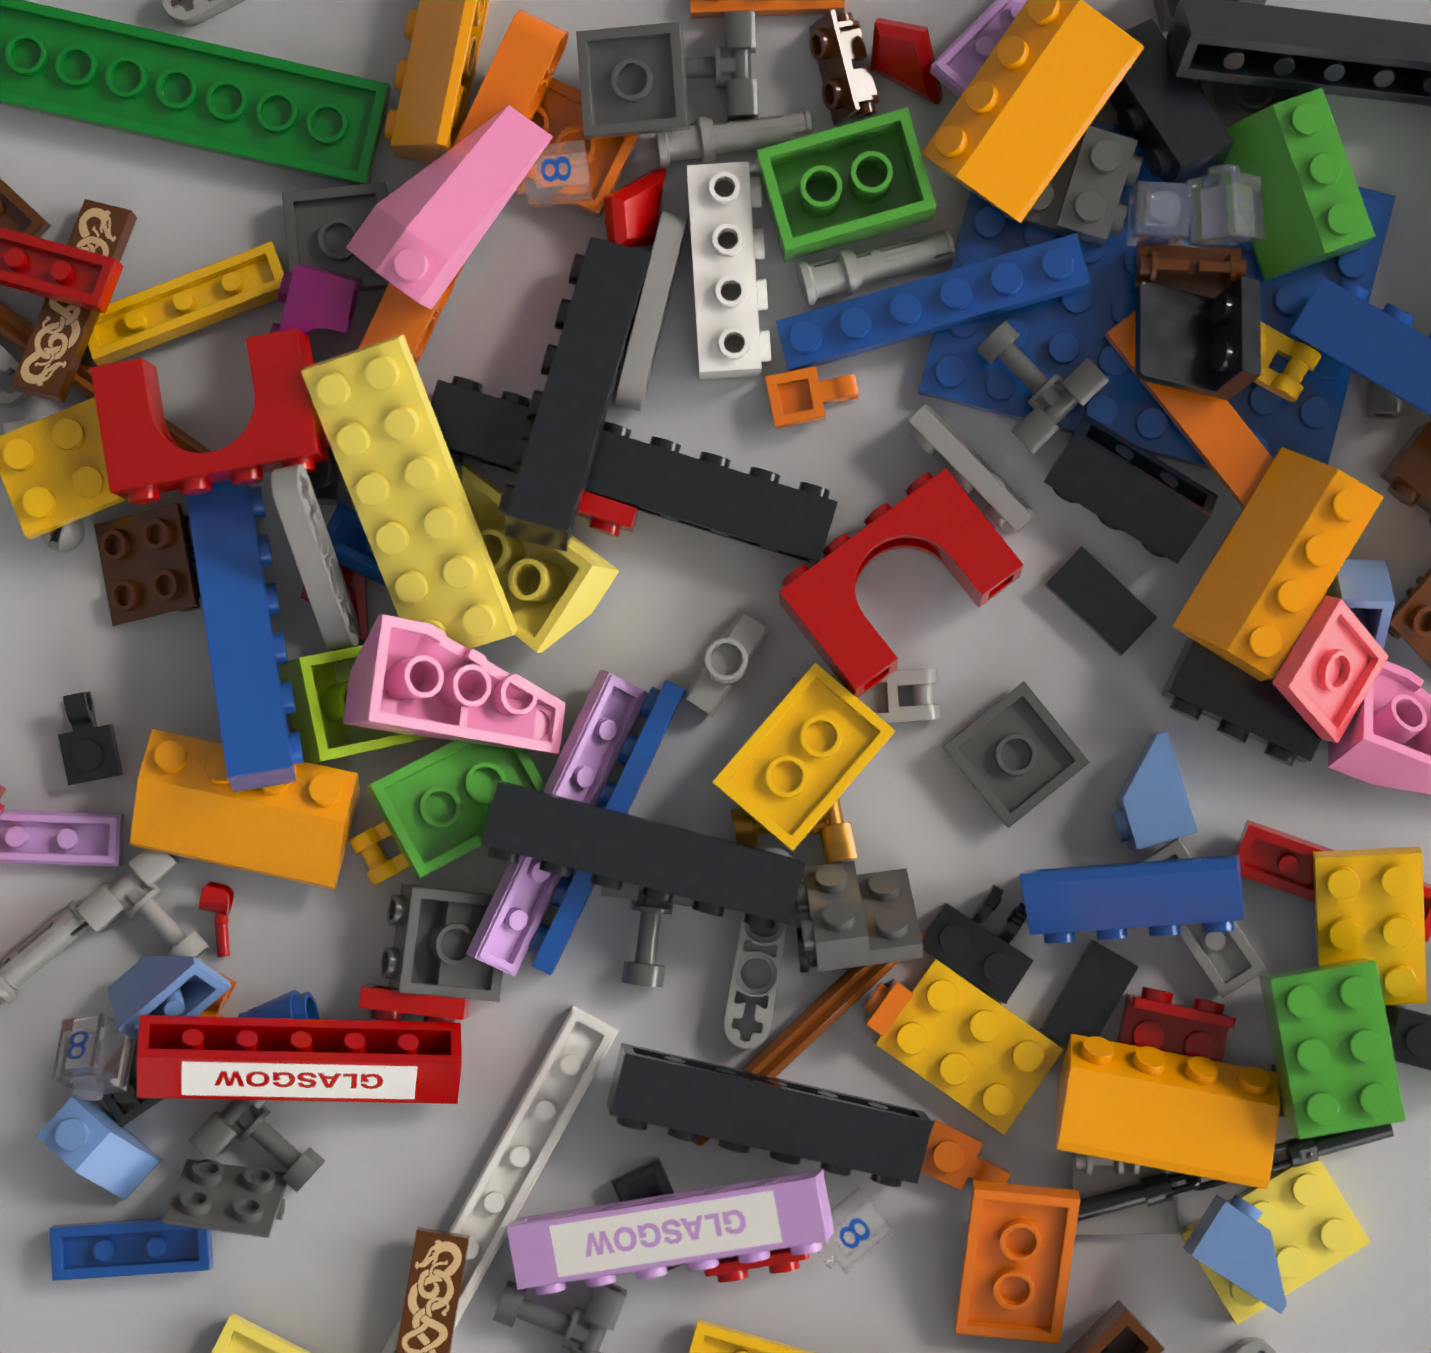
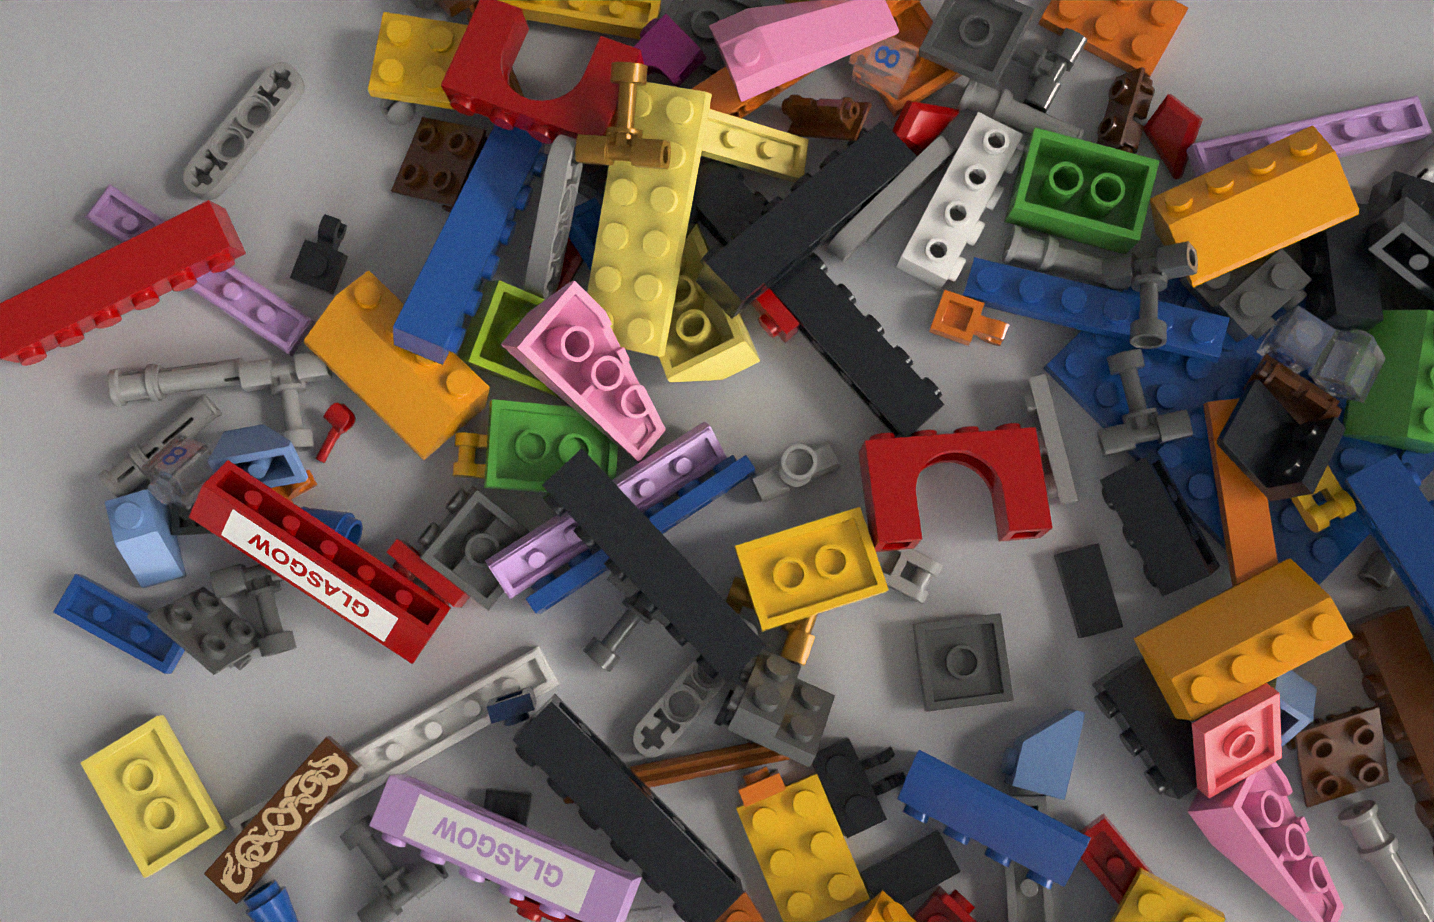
camera: 30 degrees right, 5 degrees down
(68, 981) = (128, 473): none -> light grey pin
(344, 440) = (624, 141): none -> pearl gold bar
(475, 346) = (754, 146): none -> light yellow plate
(528, 267) = (825, 117): none -> reddish brown hinge
(587, 1082) = (512, 707): none -> dark blue plate
(968, 242) = (1149, 278): none -> dark grey bar

